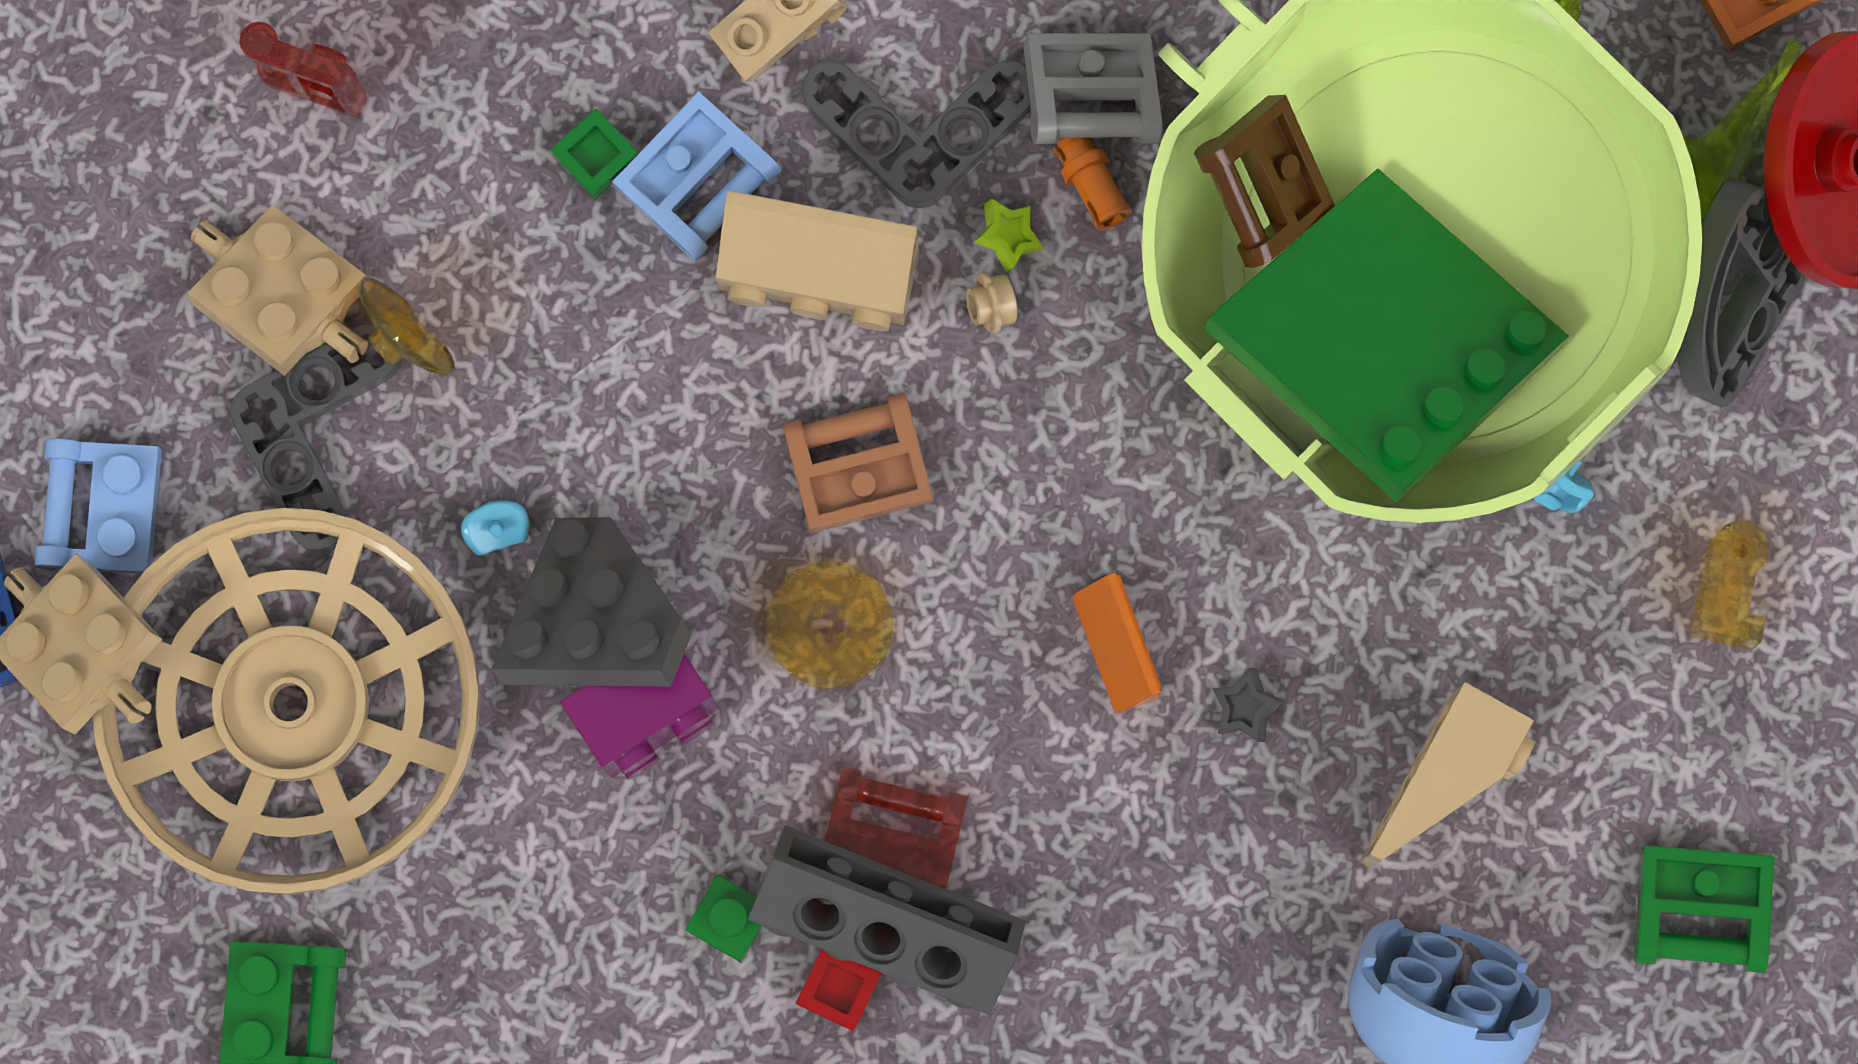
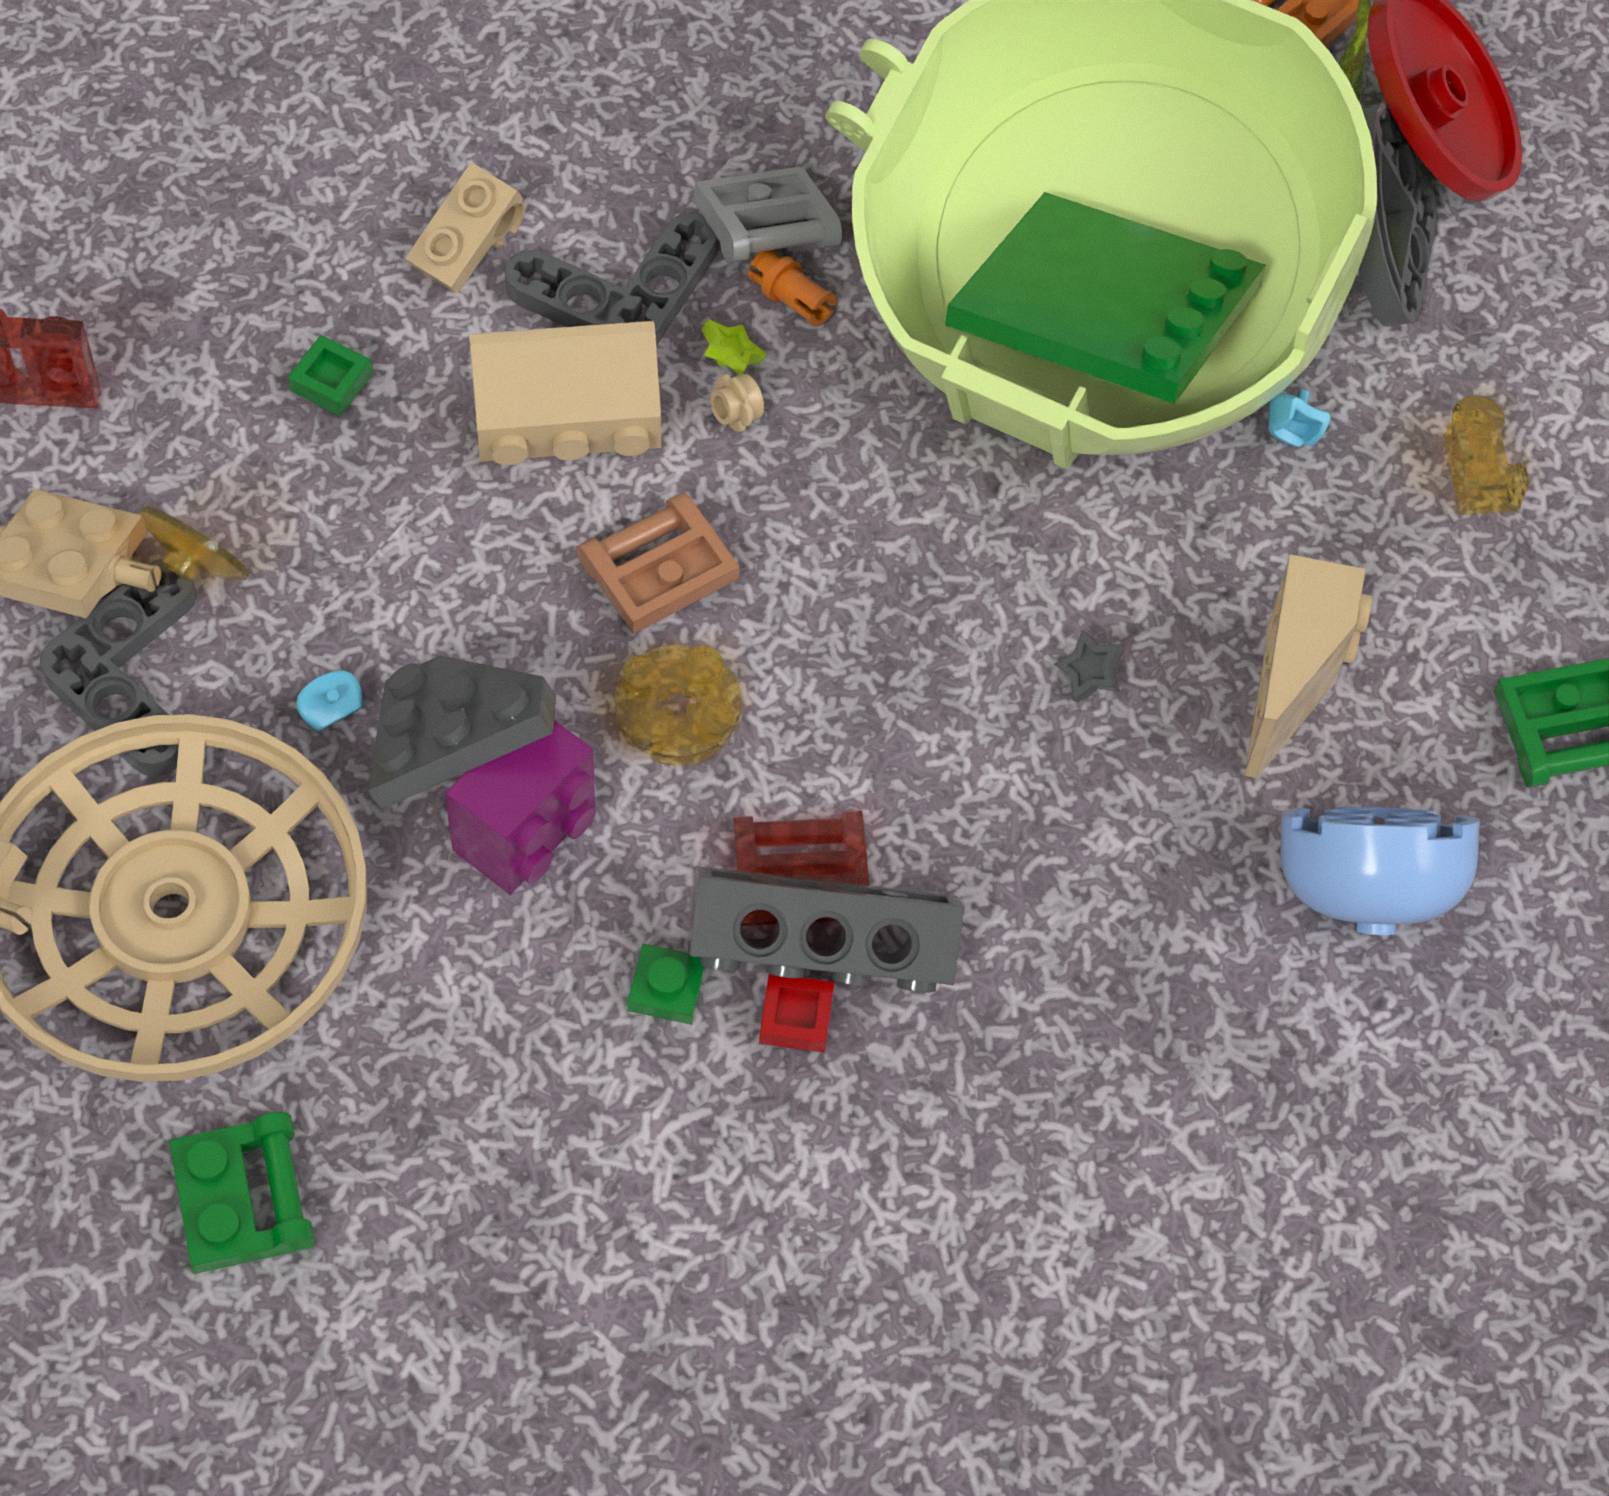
camera: 25 degrees left, 20 degrees down
(681, 161) = (410, 367): light blue plate -> none
(1117, 643) = (954, 643): orange slope -> none
(1281, 174) = (955, 200): reddish brown plate -> none

